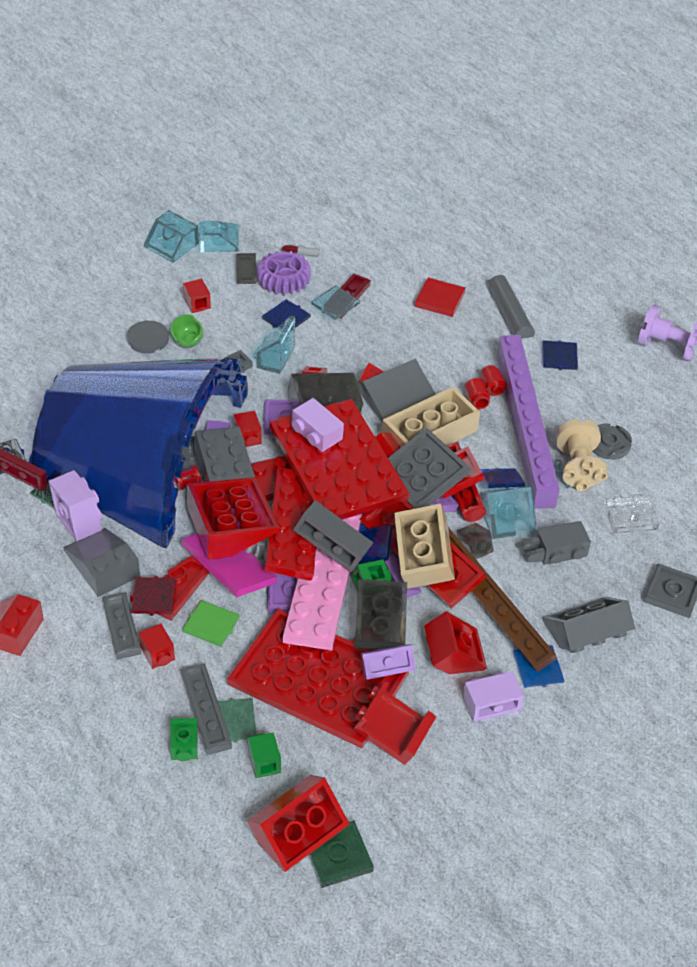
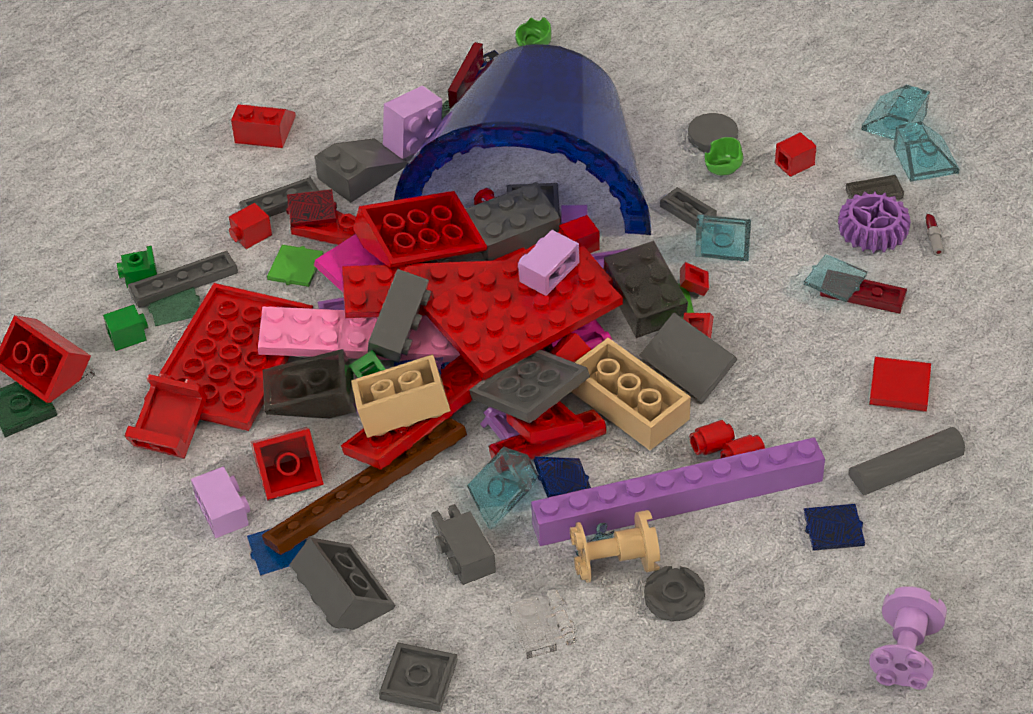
camera: 85 degrees right, 0 degrees up
(283, 311) = (800, 243): clear blue piece -> none
(388, 661) = (241, 396): plate -> none
(477, 538) = (454, 461): clear smoke bracket -> none

